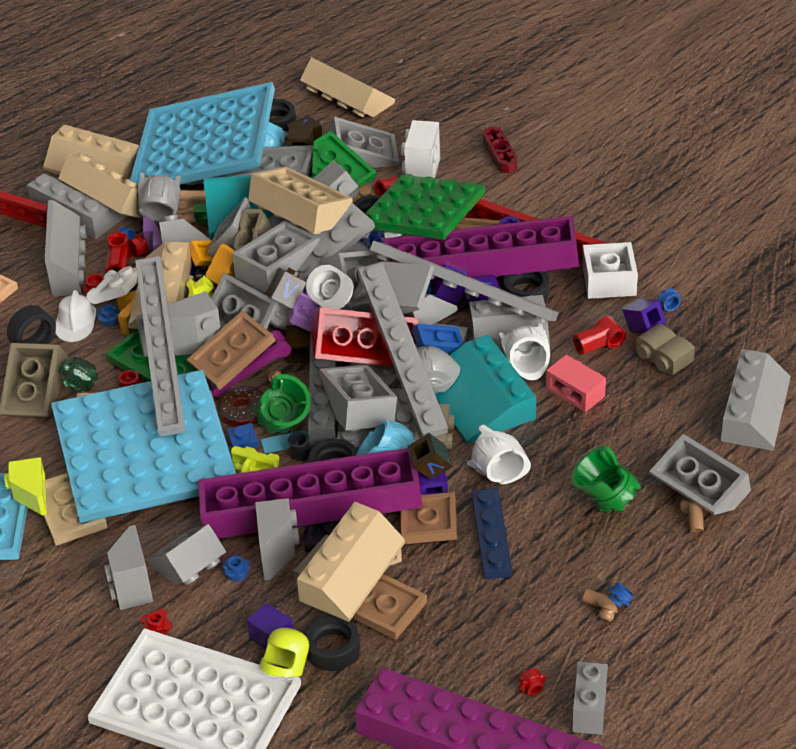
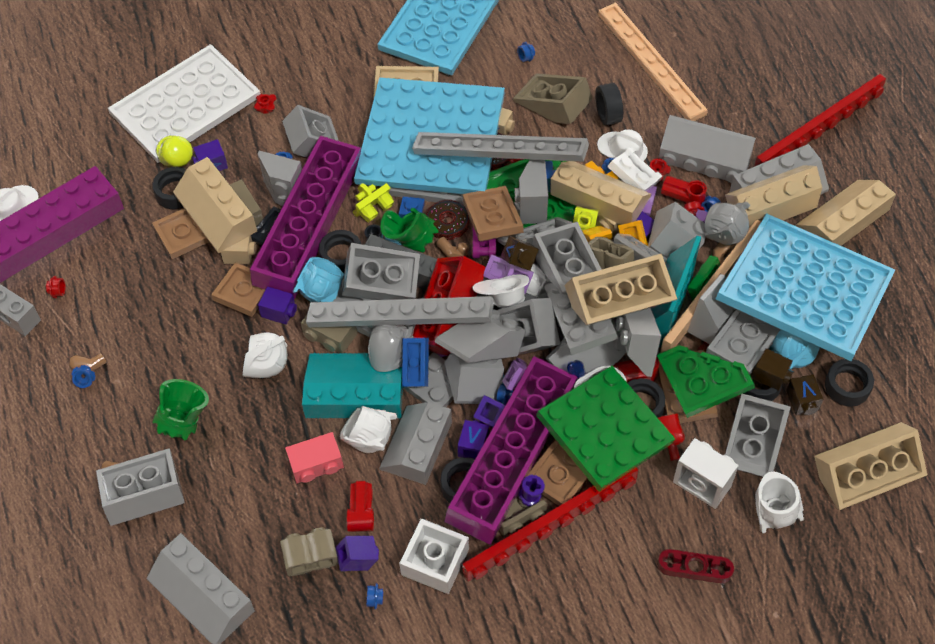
camera: 115 degrees right, 15 degrees up
(28, 483) = (427, 57): neon yellow slope -> none
(78, 374) = (540, 121): clear green head -> none
(128, 571) = (308, 90): light grey slope -> none
(420, 107) = (777, 502): none -> white helmet
(430, 456) = (272, 288): dark brown brick -> none
(473, 286) = (456, 396): light grey plate -> none
(491, 534) = (205, 327): dark blue plate -> none

